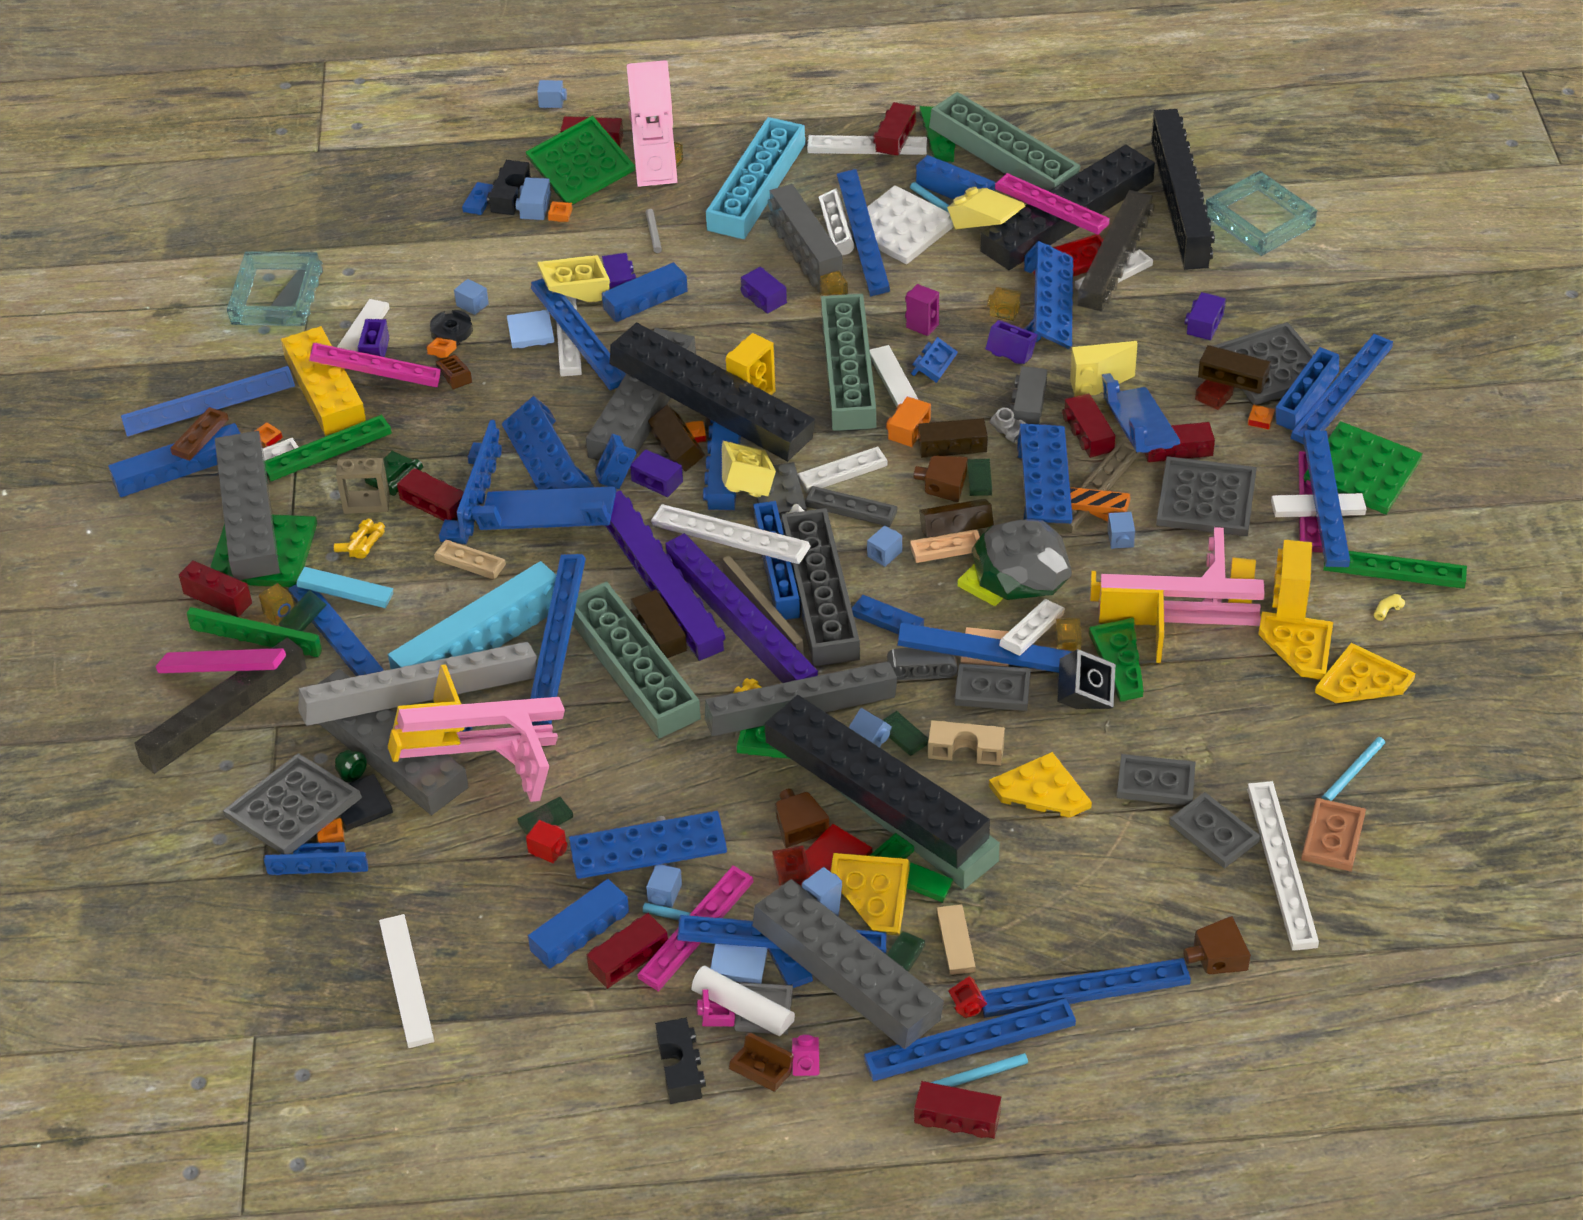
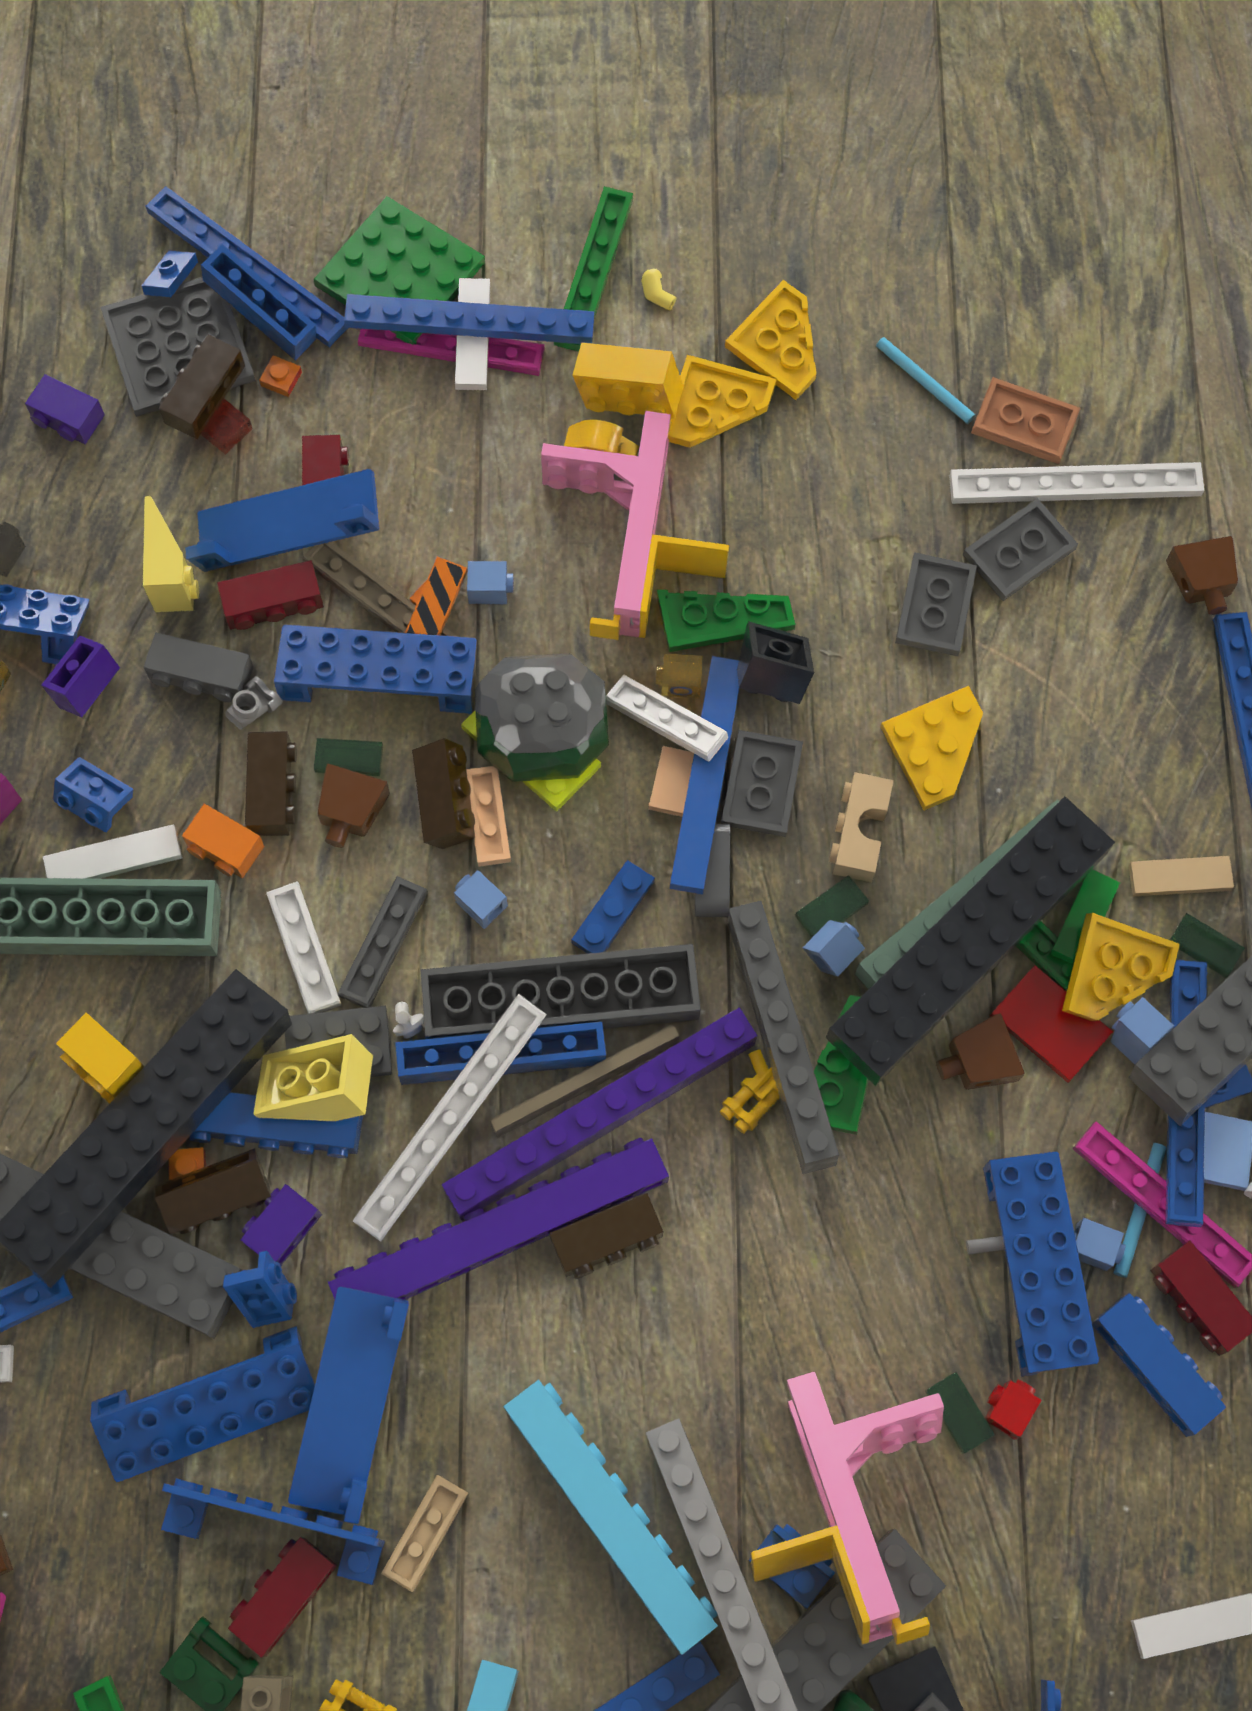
camera: 90 degrees left, 25 degrees up
(558, 628) = (646, 1387): blue plate -> none
(634, 661) = (680, 1275): sand green brick -> none
(791, 864) = (1072, 1070): clear red piece -> none
(1206, 496) = (435, 465): dark grey plate -> none
(1311, 345) = (169, 273): none -> blue plate

